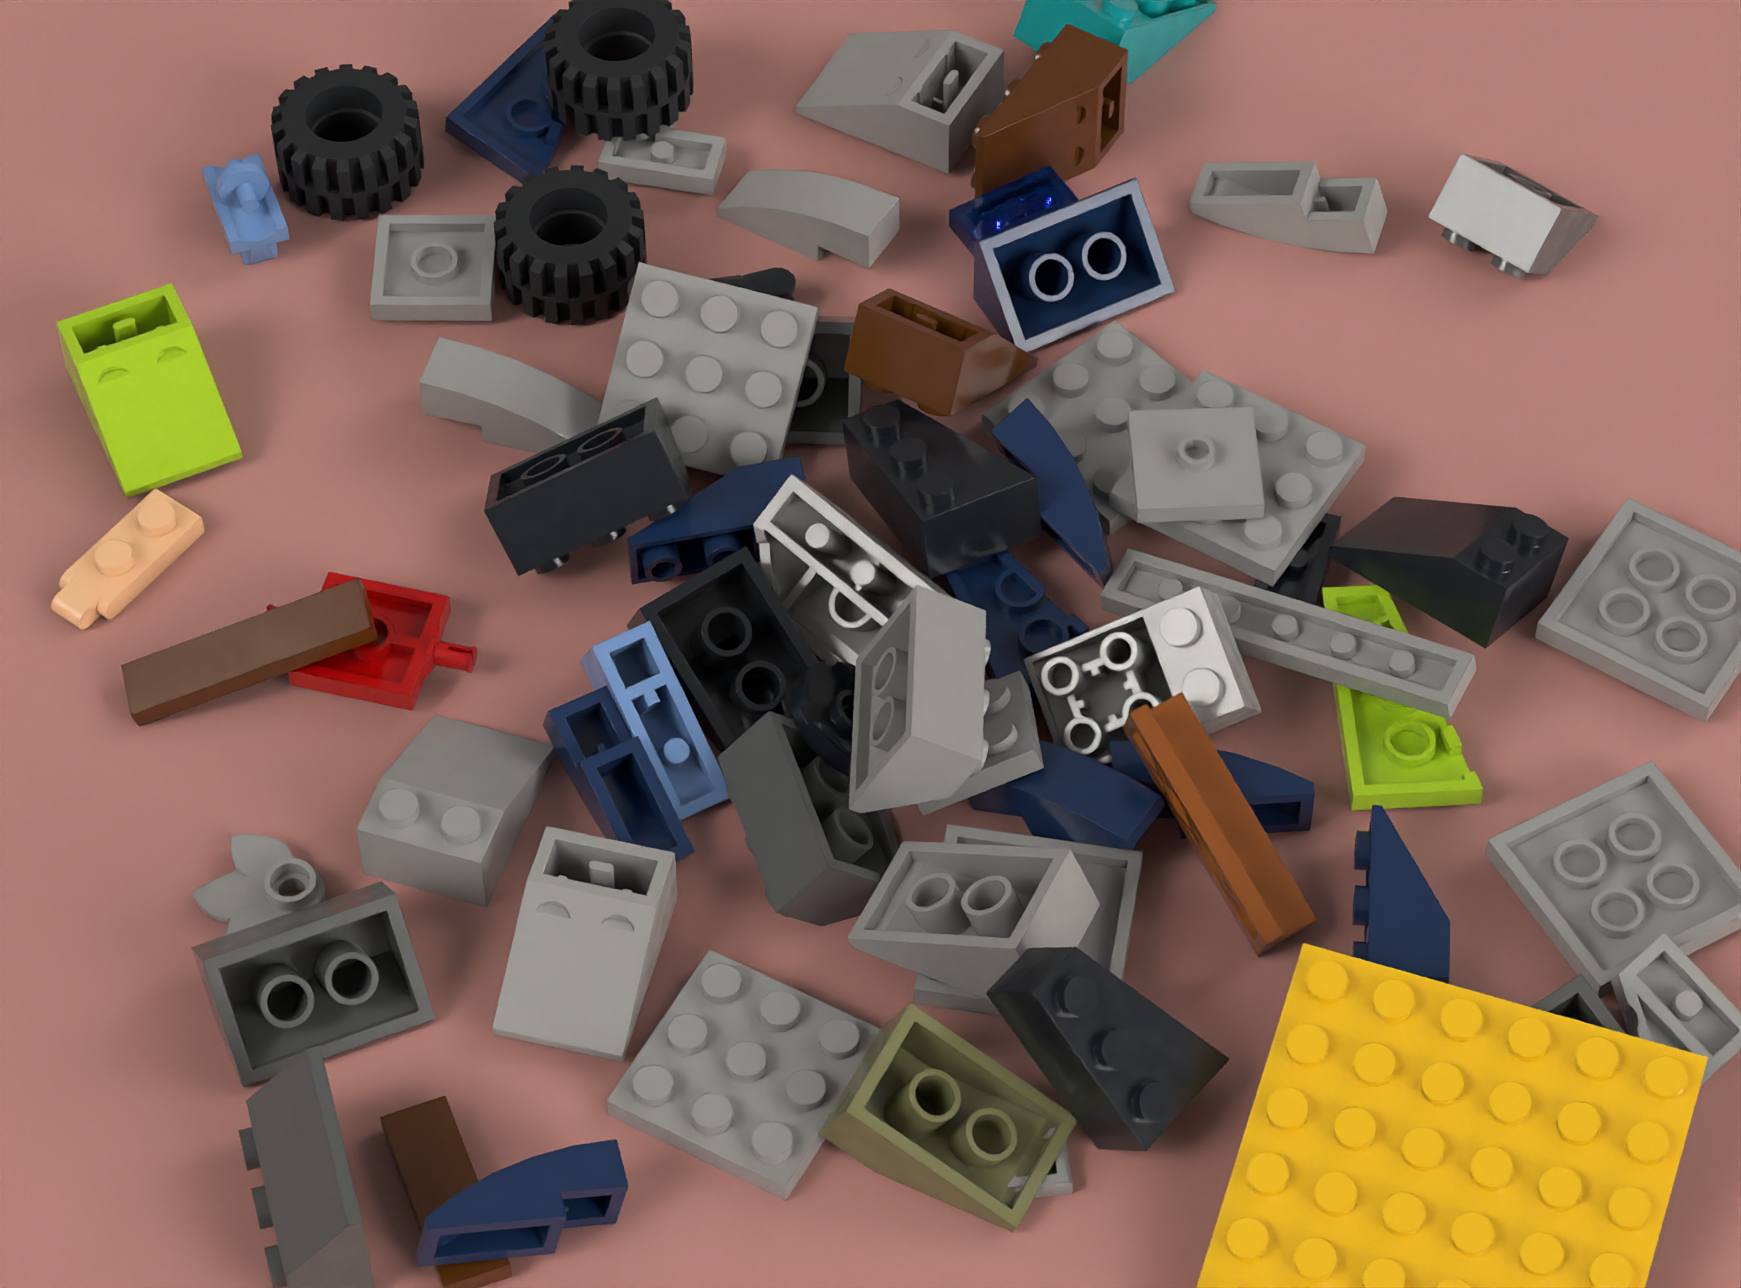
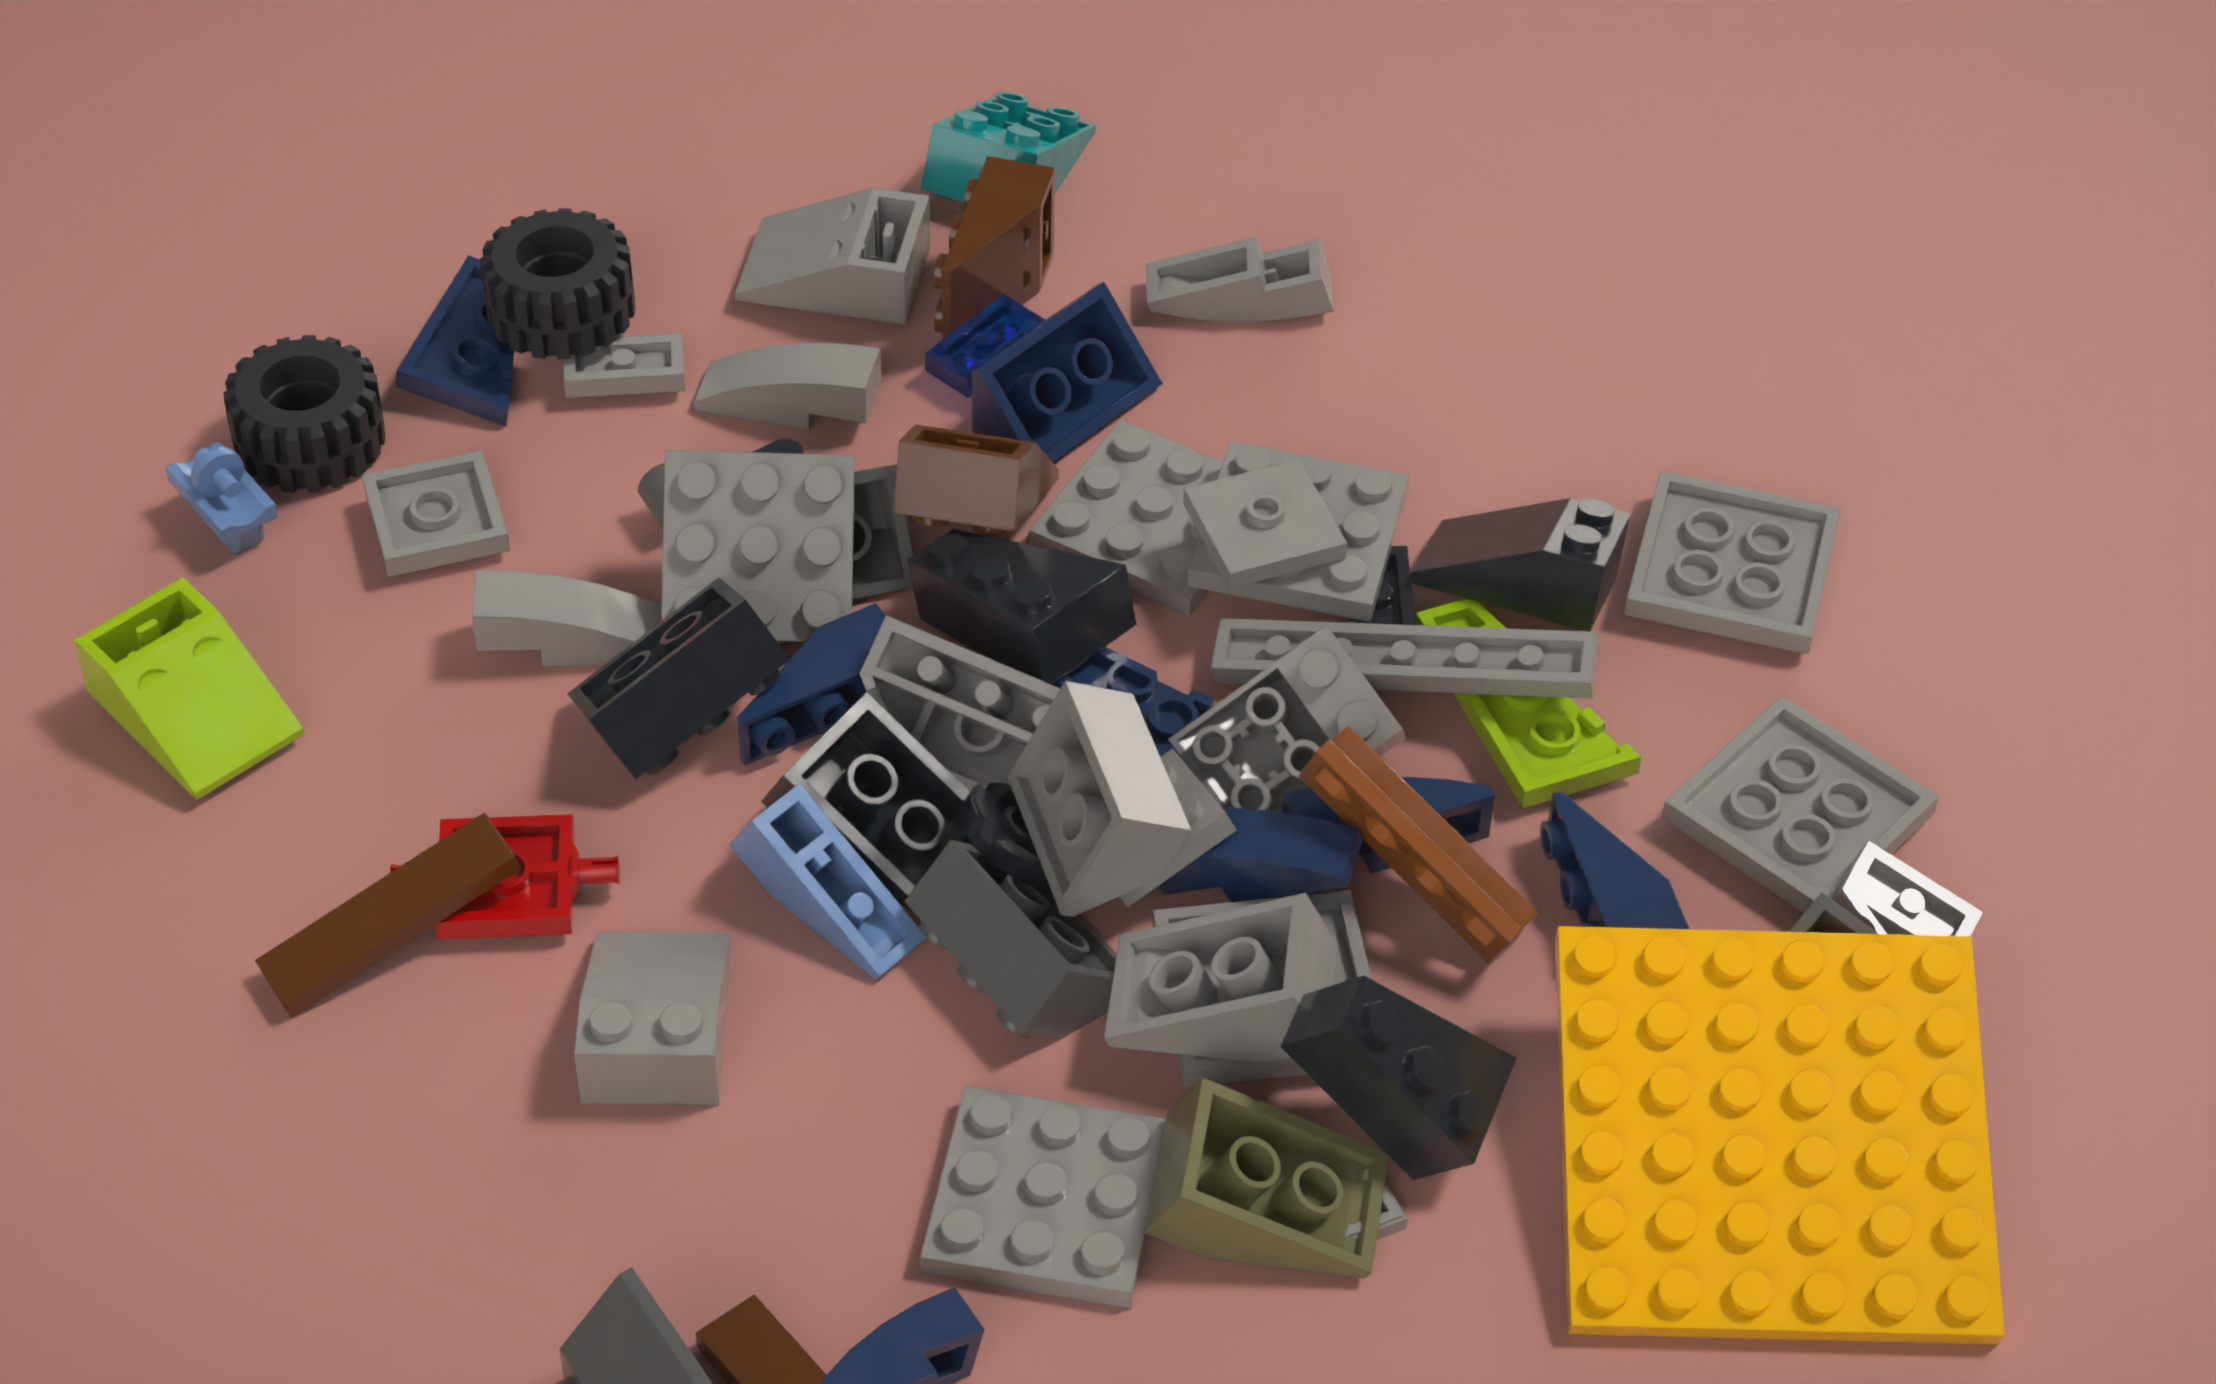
camera: 20 degrees left, 5 degrees down
(126, 560) = (219, 859): light nougat hinge -> none
(259, 884) = (479, 1144): light grey plate -> none
(314, 980) = (576, 1217): dark grey slope -> none
(561, 211) = (567, 461): black tyre -> none
(586, 943) = (843, 1109): light grey slope -> none
(614, 774) = (811, 951): dark blue slope -> none
(1064, 498) = (1158, 595): dark blue slope -> none
(1508, 216) = (1446, 251): slope -> none

